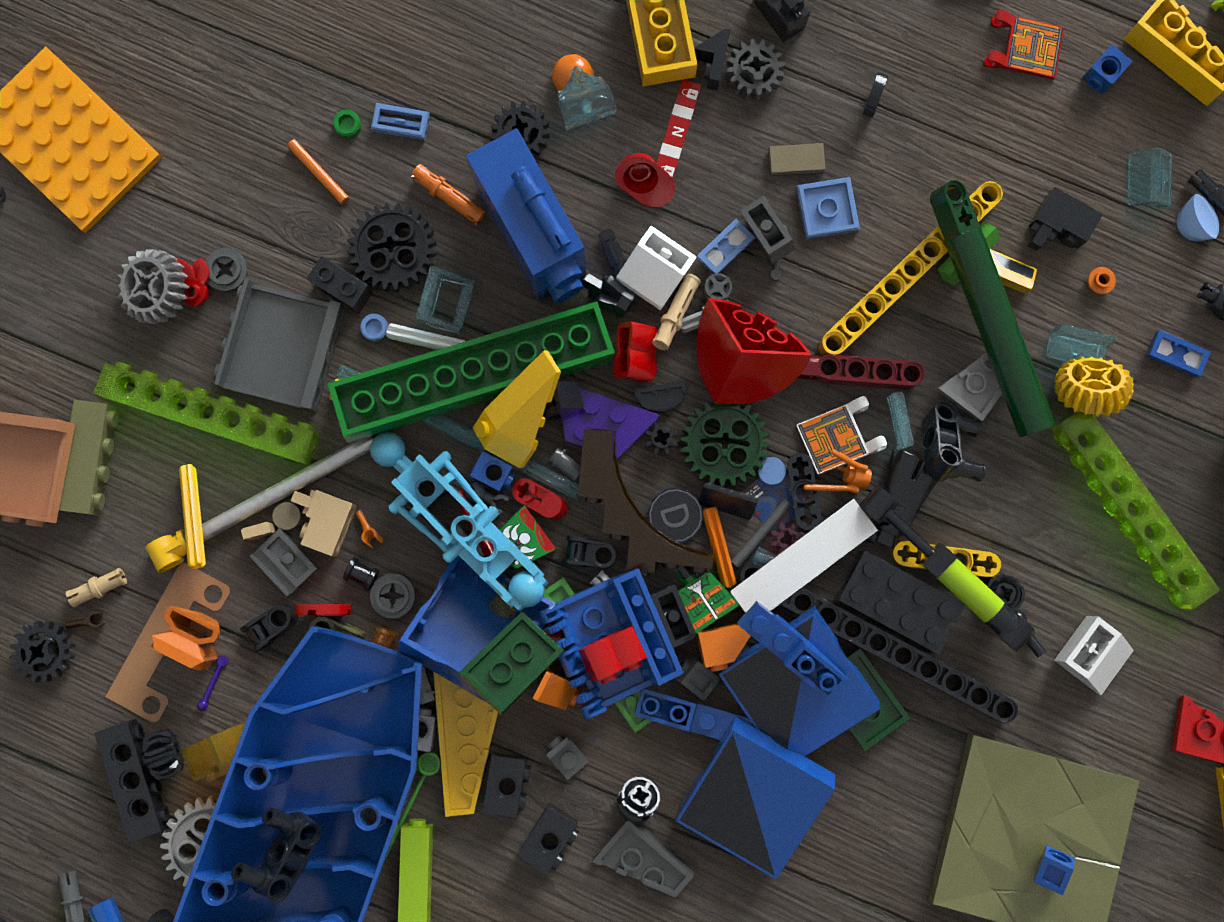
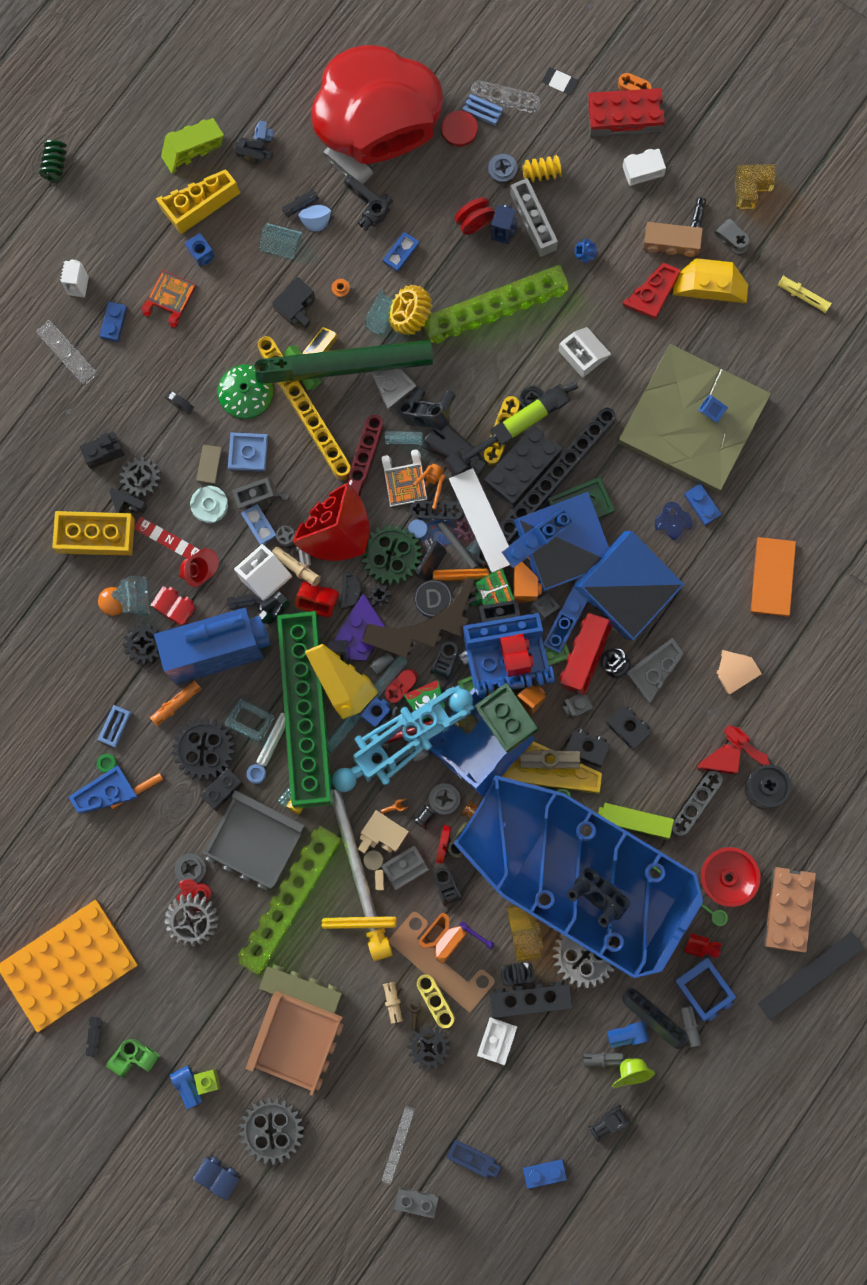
camera: 70 degrees left, 5 degrees down
(68, 744) = (497, 1041): none -> white plate
(95, 652) = (444, 1006): none -> light yellow beam
(306, 128) = (103, 792): none -> blue wing
(476, 756) = (563, 760): none -> dark tan piece
(582, 158) = (173, 606): none -> red brick
(641, 754) = (586, 653): none -> red brick
(739, 173) = (209, 504): none -> light aqua tile
(866, 842) = (673, 523): none -> clear blue plate
(899, 190) = (247, 402): none -> green dish
(905, 878) = (702, 504): none -> blue piece

